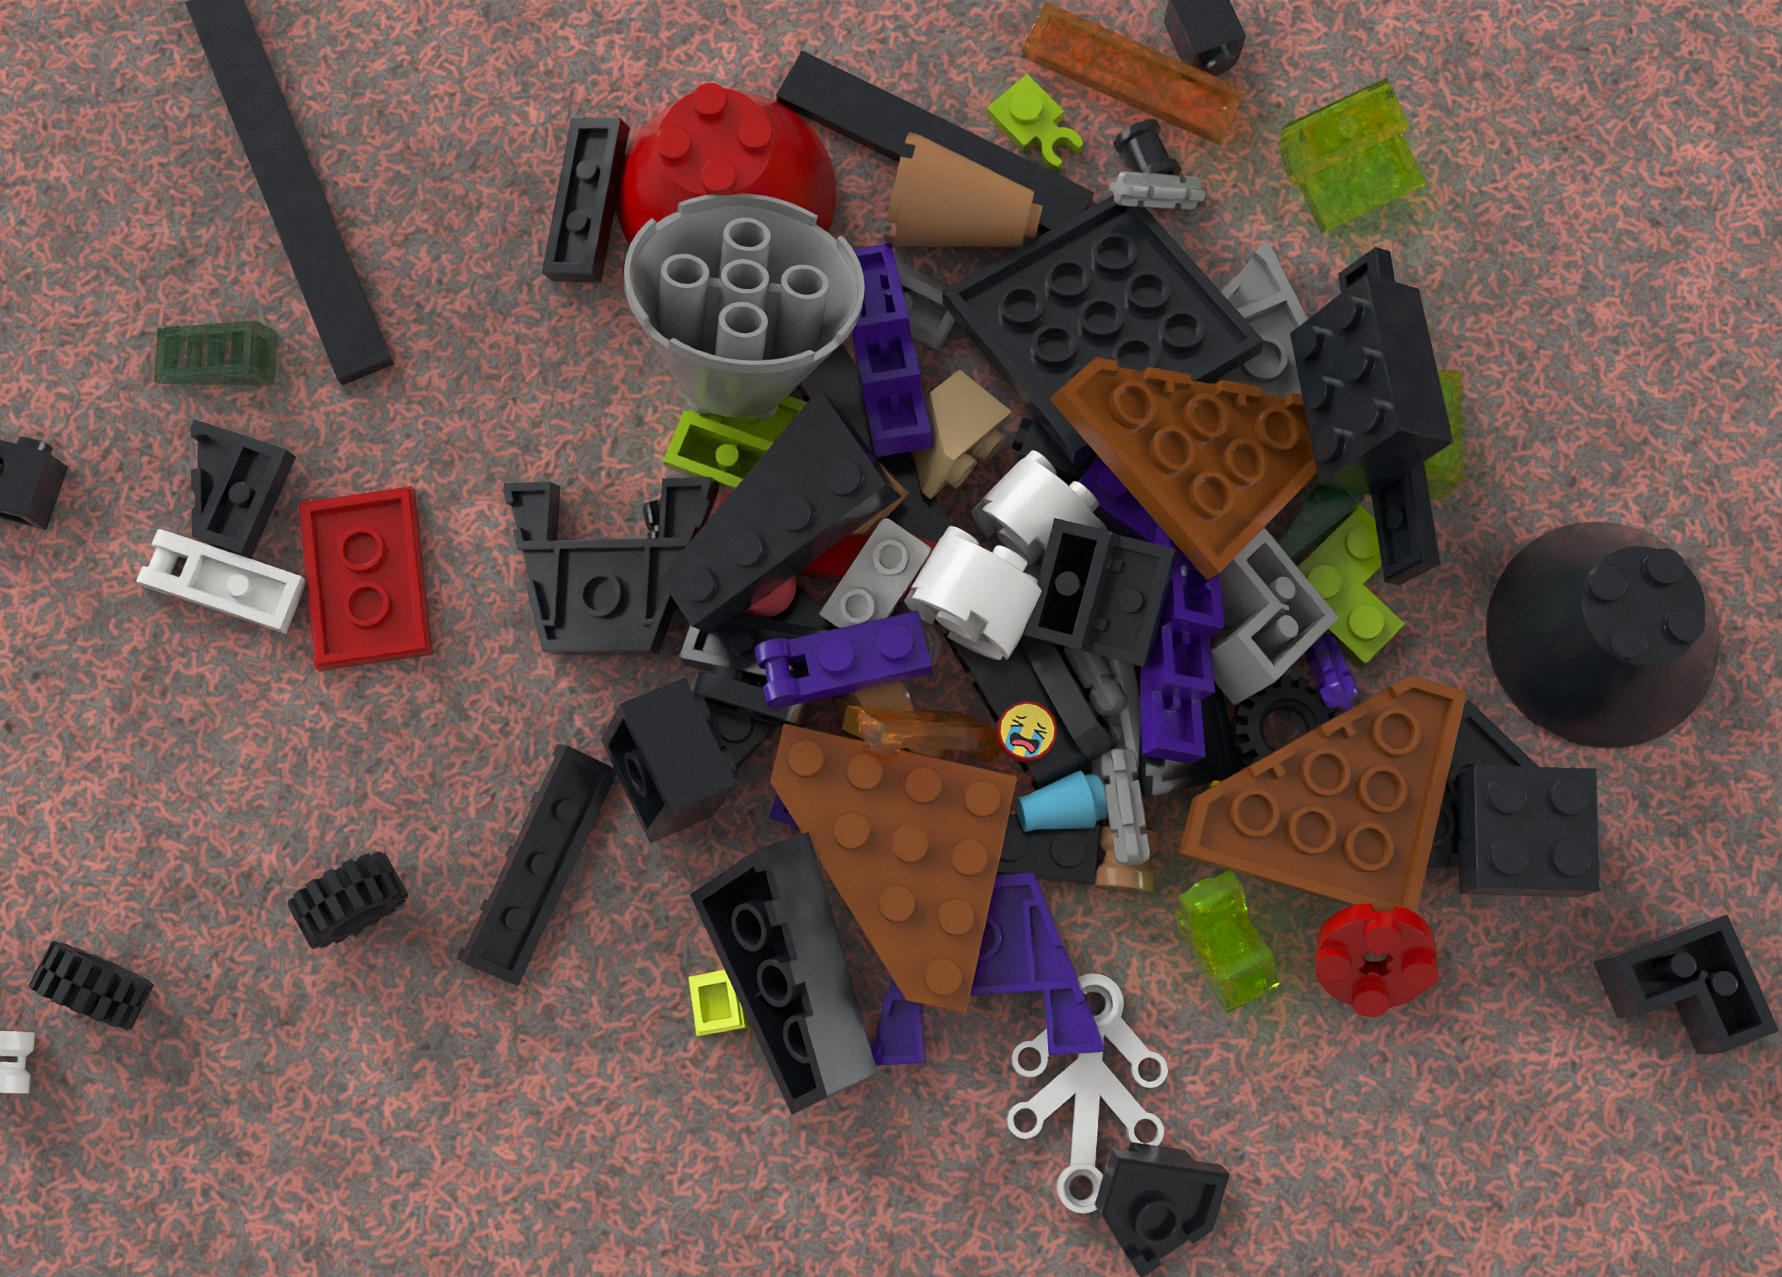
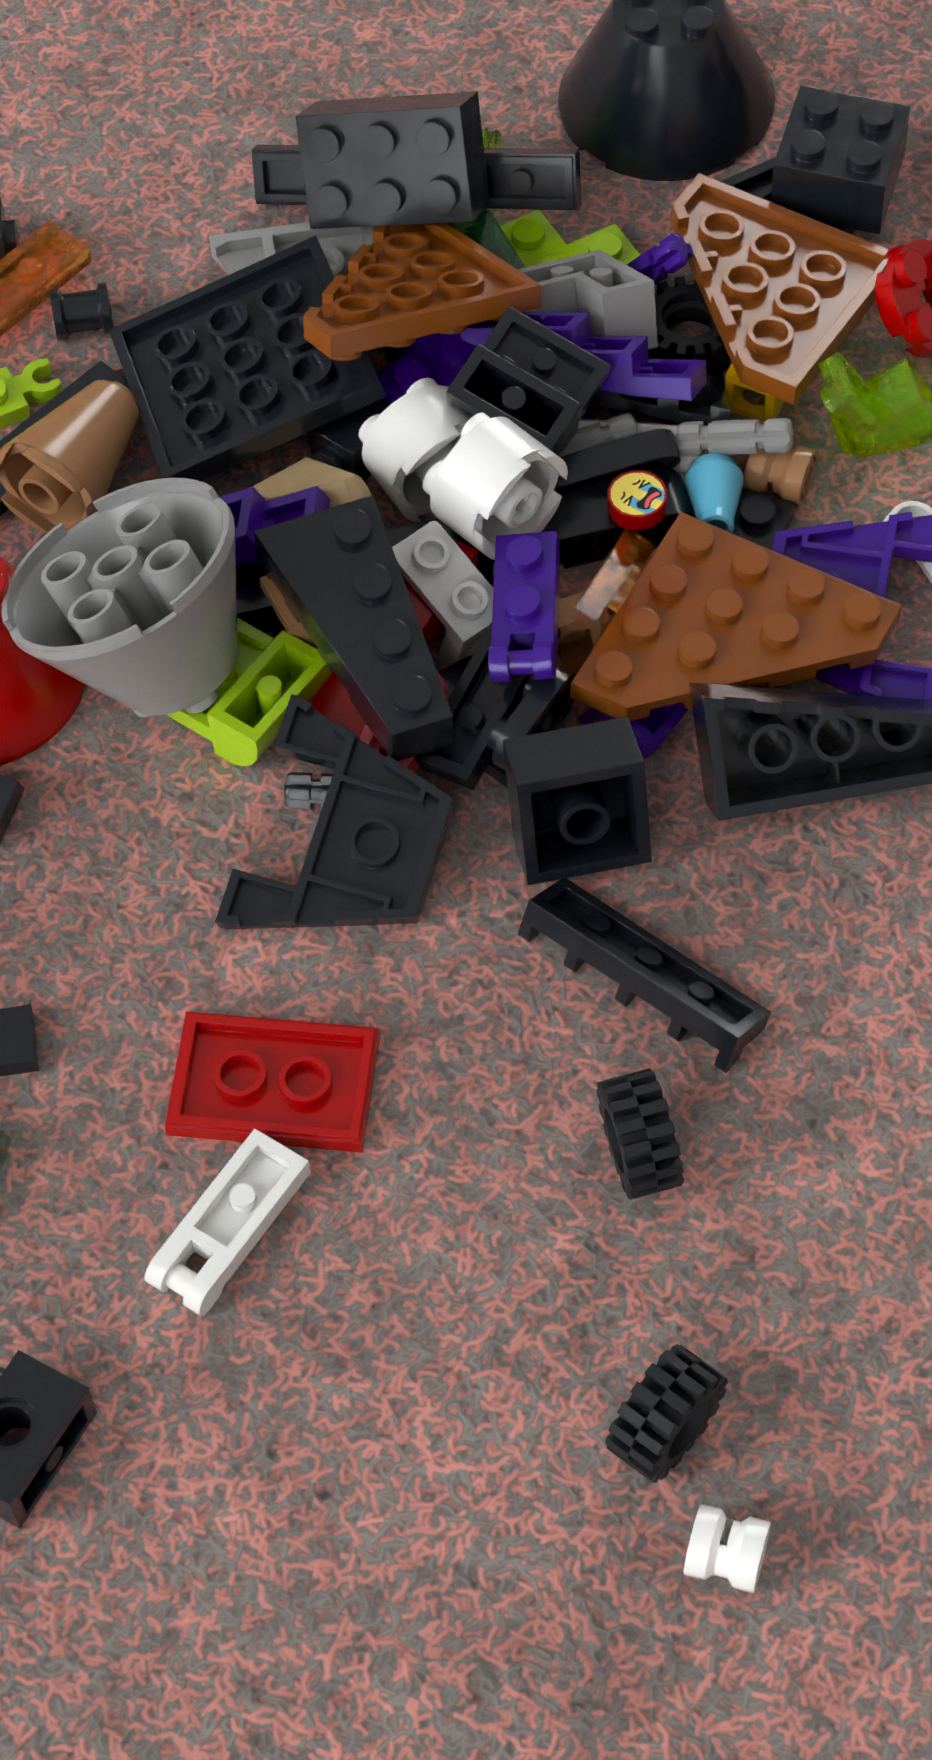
camera: 75 degrees left, 20 degrees down
(234, 487) = (119, 1187): black wing -> none
(715, 1004) = (833, 836): neon yellow slope -> none
(1157, 190) = (124, 302): light grey axle -> none
(1351, 155) = (151, 157): clear neon green brick -> none

